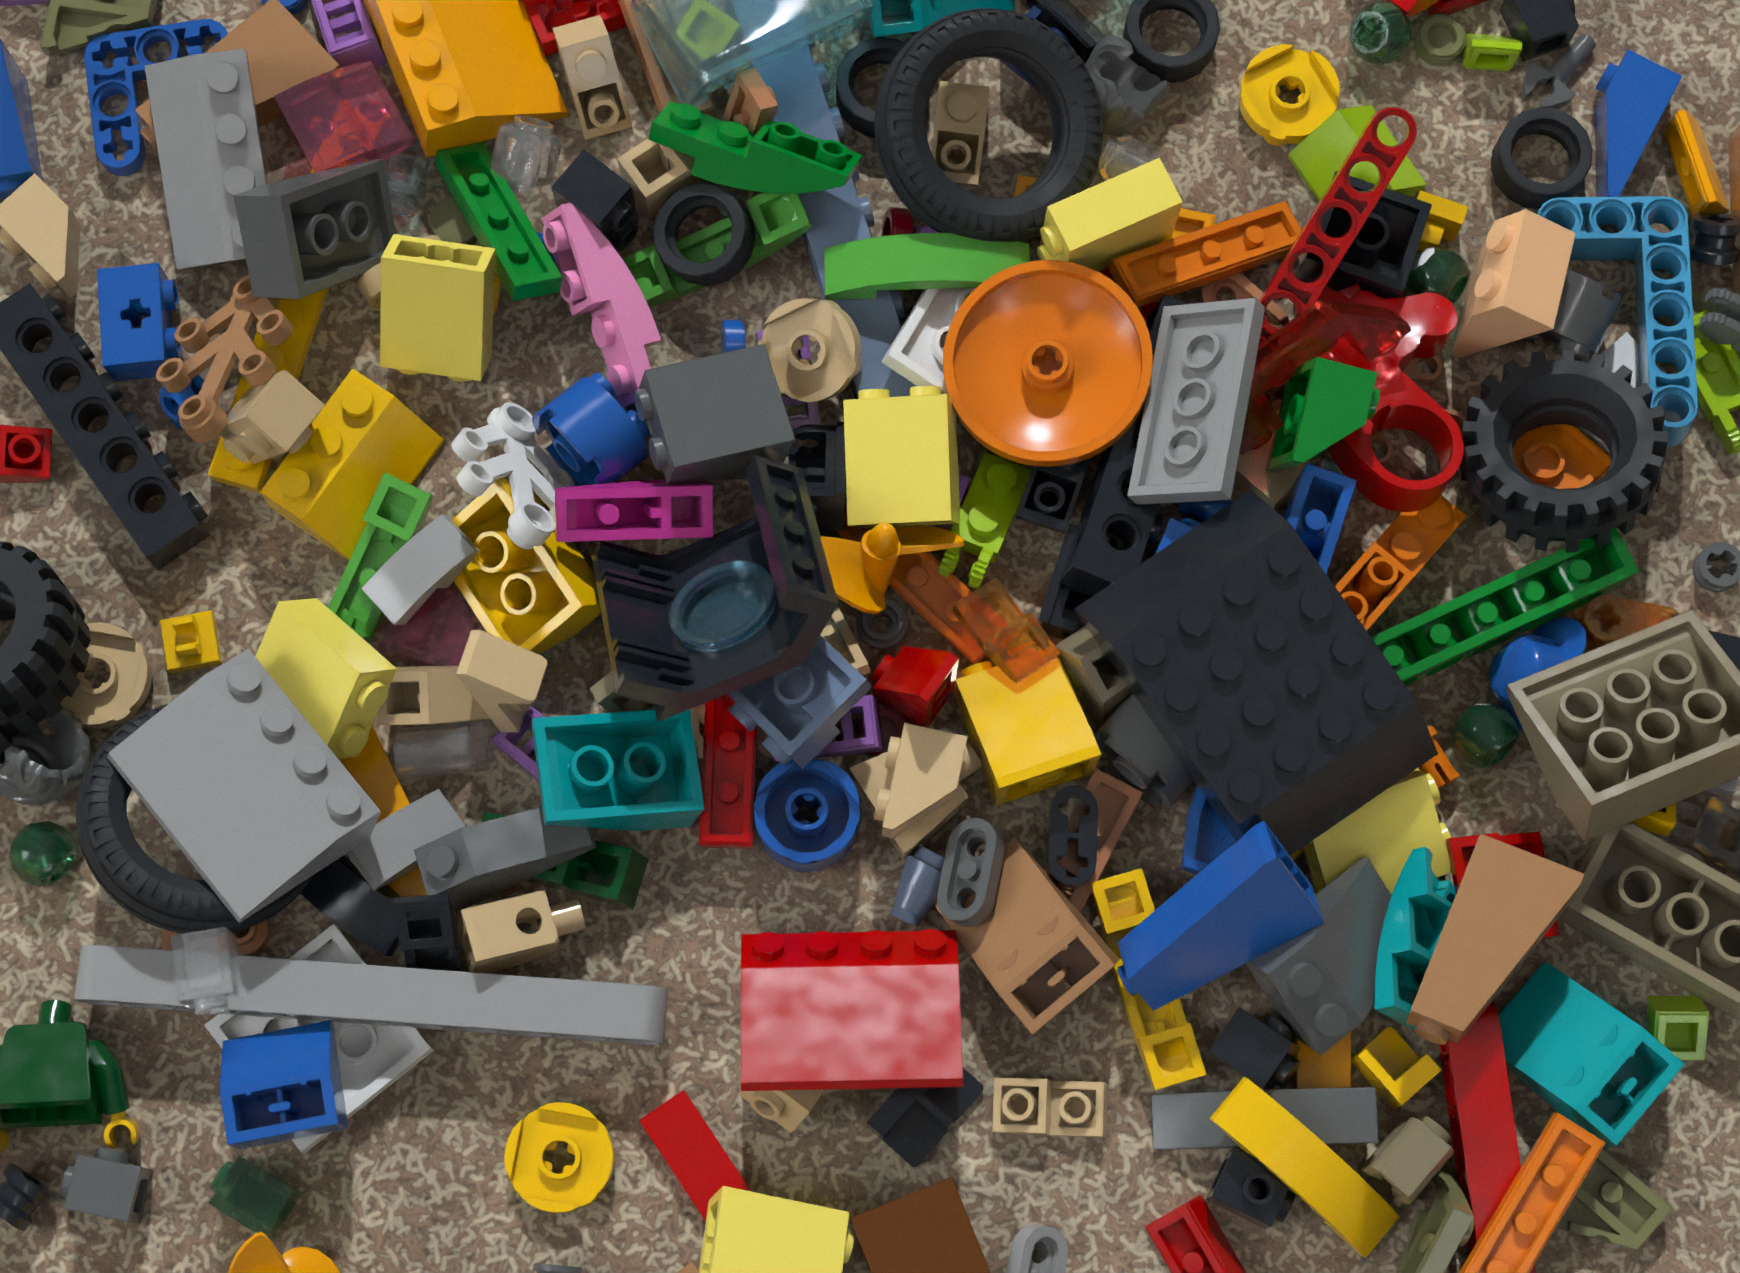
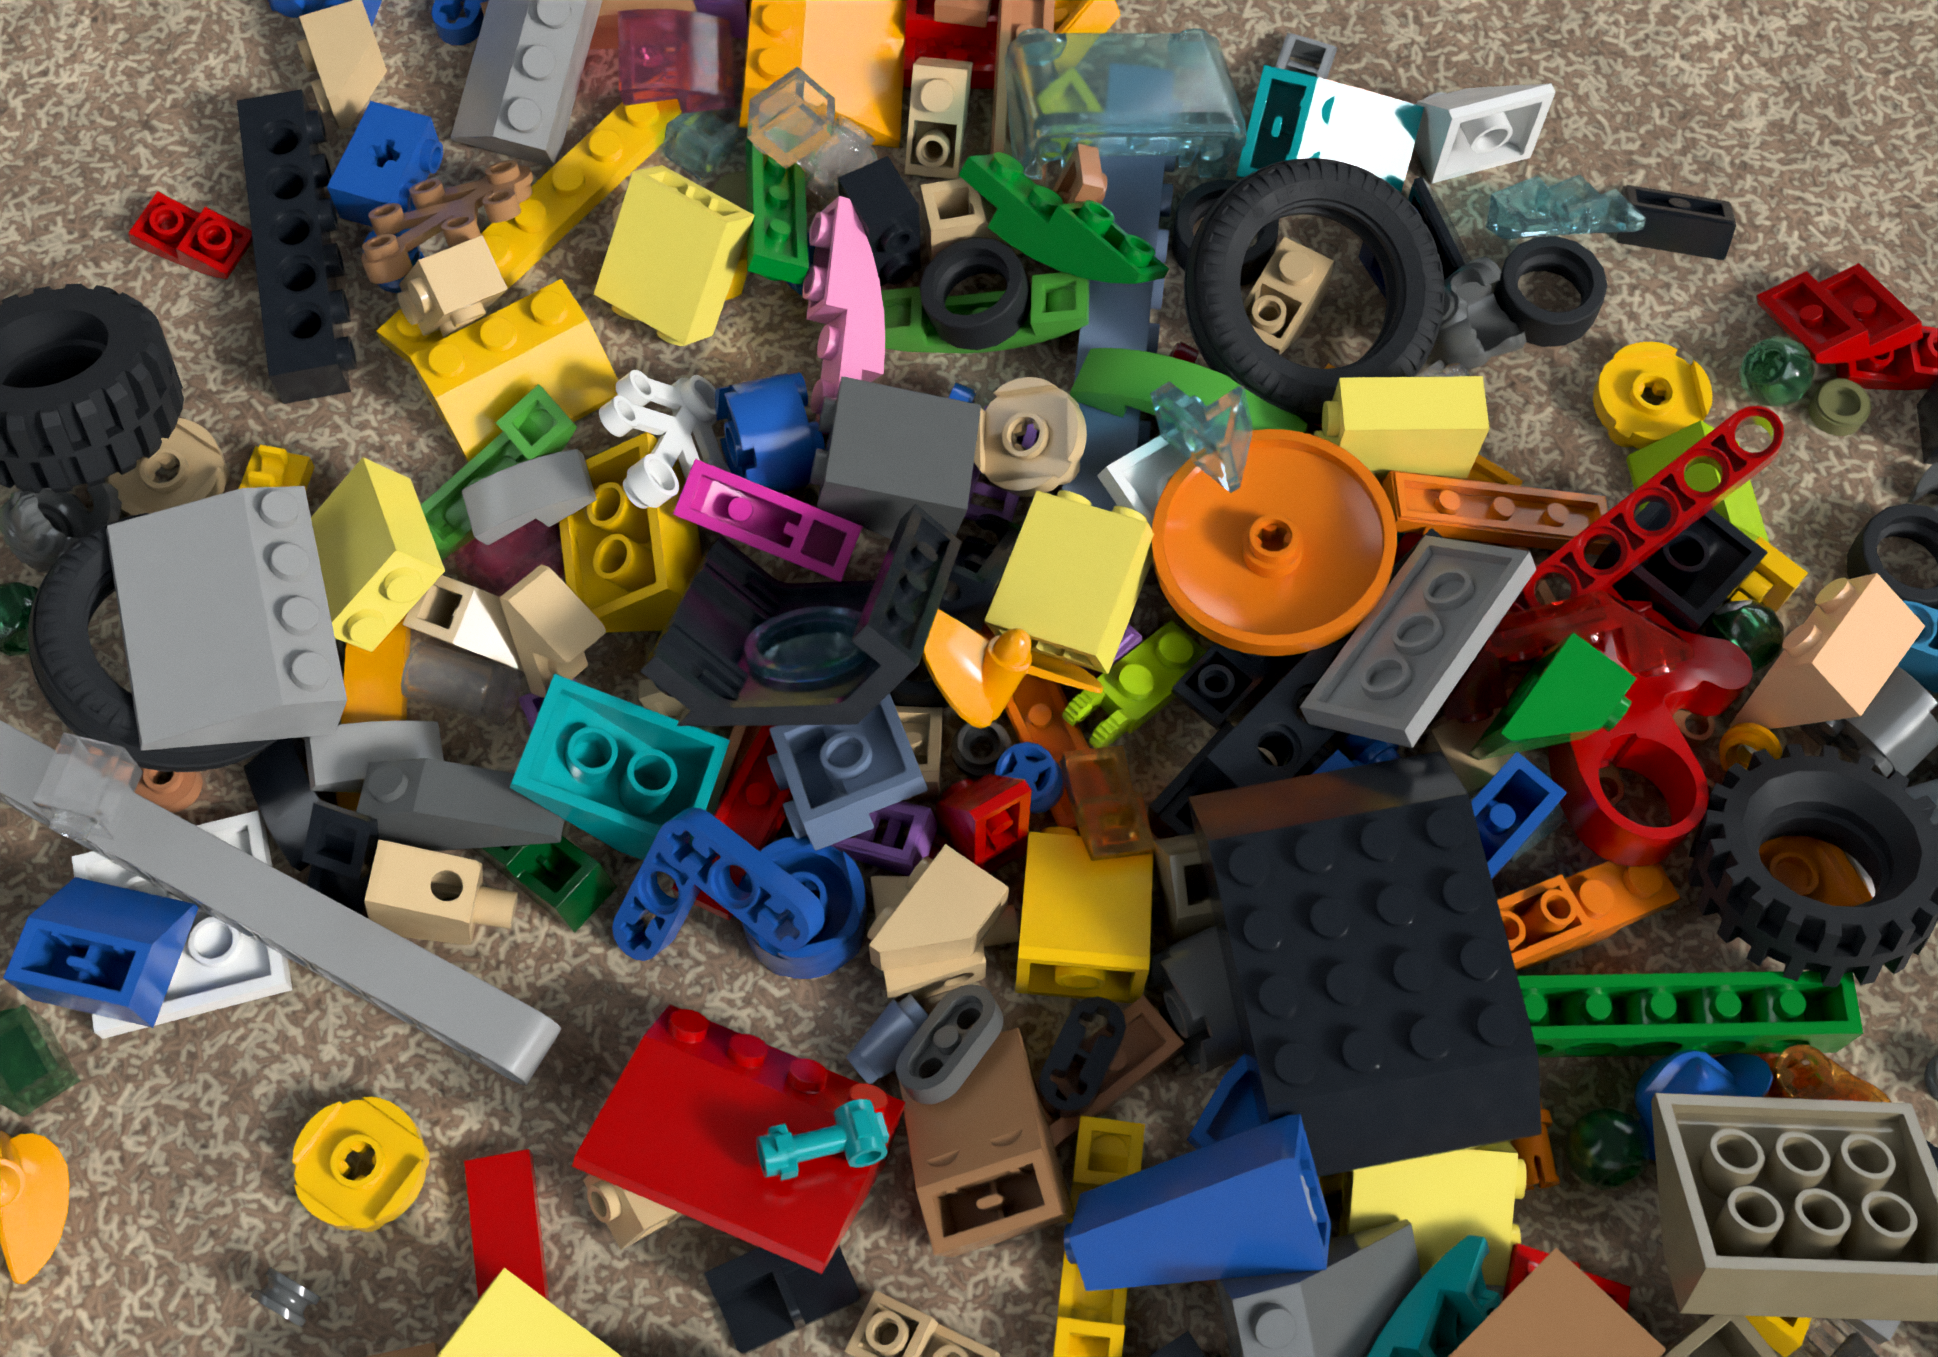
camera: 25 degrees right, 10 degrees down
(315, 229) = (588, 132): dark grey slope -> none
(479, 141) = (791, 118): none -> clear brick
(716, 825) = (694, 872): none -> blue beam
(928, 628) = (1027, 762): none -> blue wheel
(941, 973) = (857, 1133): none -> teal bar
(966, 299) = (1210, 435): none -> clear light blue slope
(1471, 369) = (1750, 734): none -> light orange plate
(1490, 52) = (1892, 438): lime slope -> none

